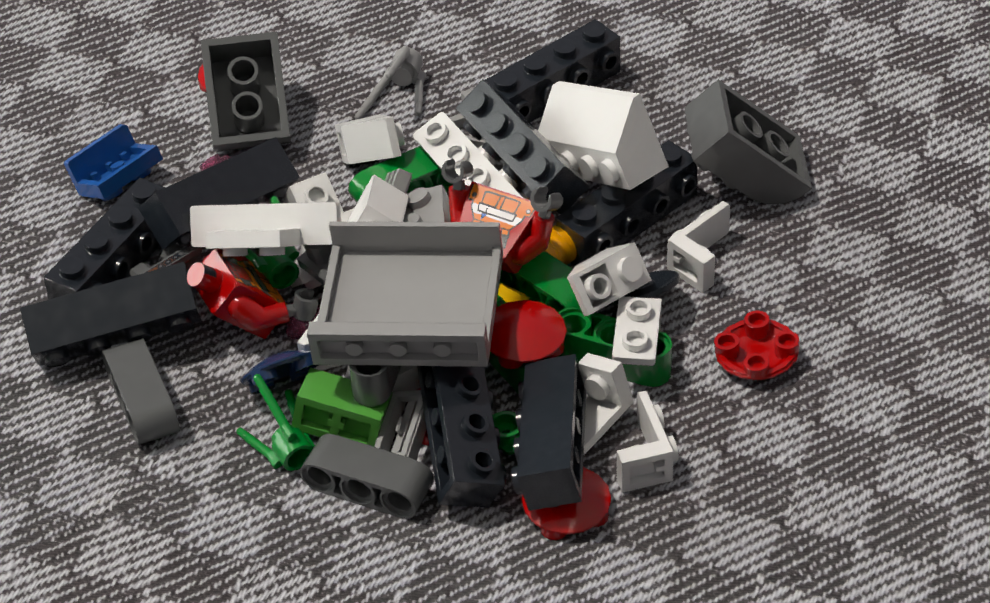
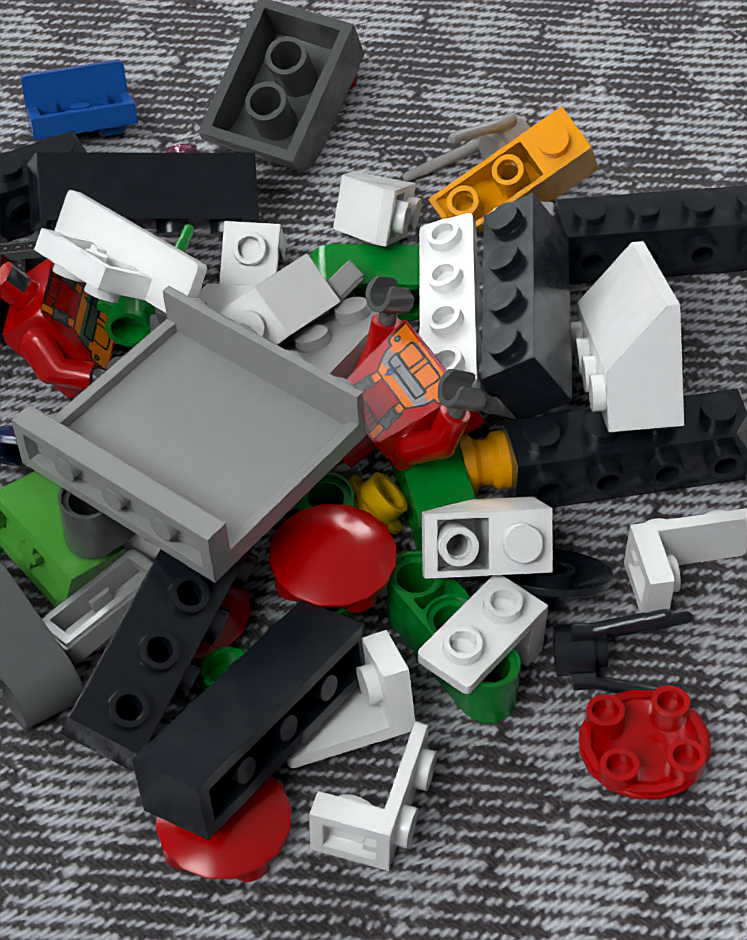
camera: 30 degrees right, 5 degrees up
(436, 80) = (541, 161): none -> light orange slope
(688, 317) = (584, 647): none -> black plant

